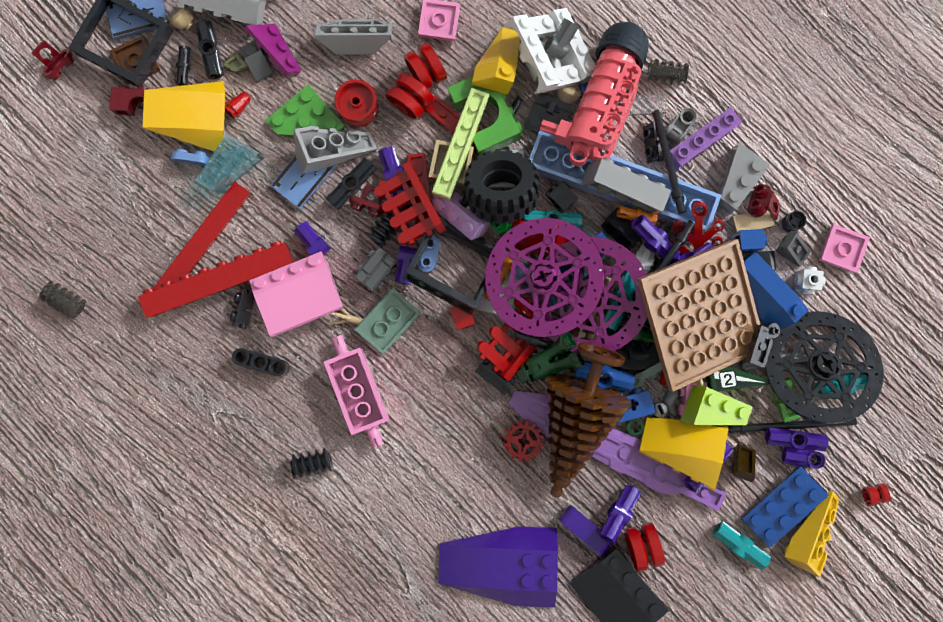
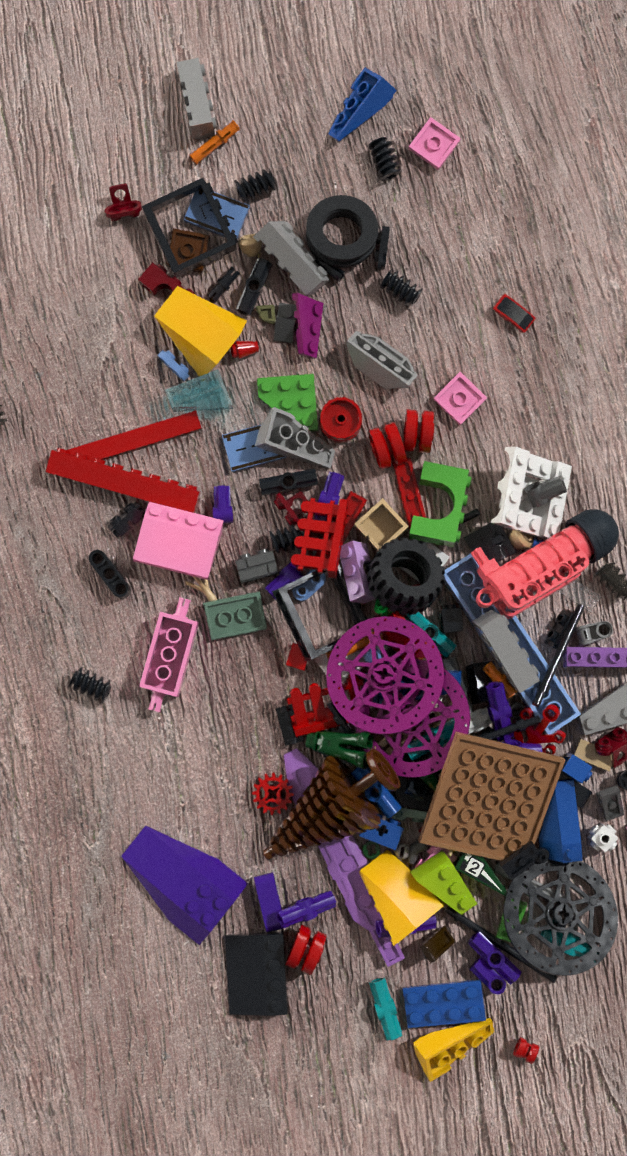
camera: 35 degrees right, 0 degrees up
(460, 144) = (399, 516): yellowish green tile -> none
(499, 63) = (479, 473): yellow wedge -> none

